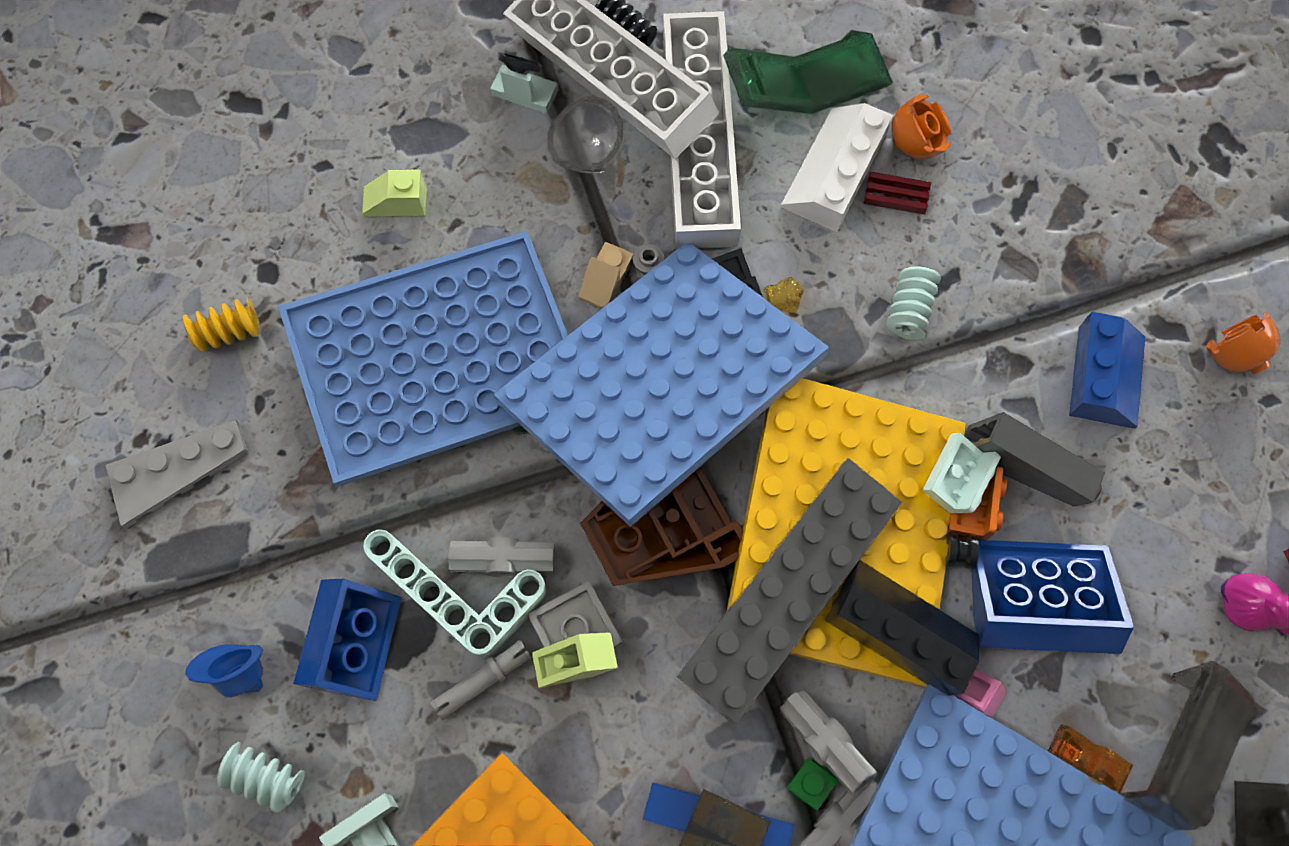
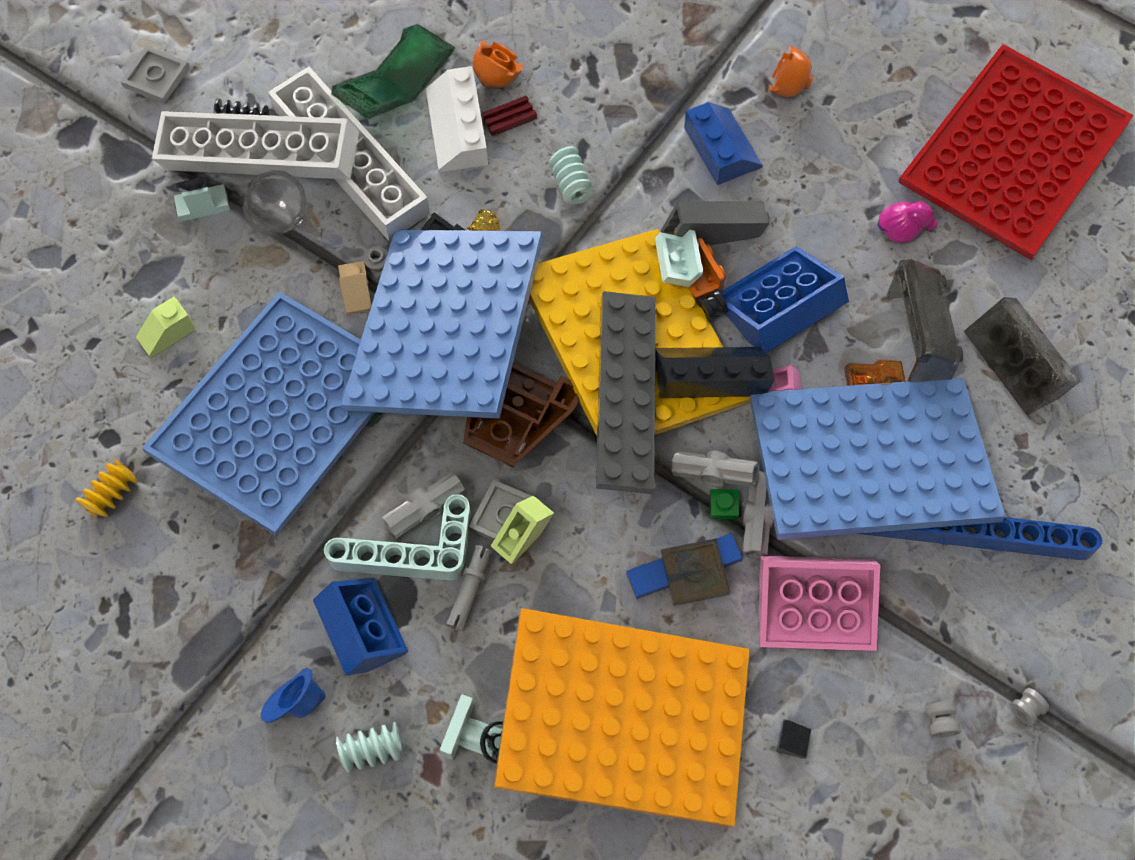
camera: 35 degrees left, 5 degrees down
(156, 475) = (138, 617): light grey wing -> none

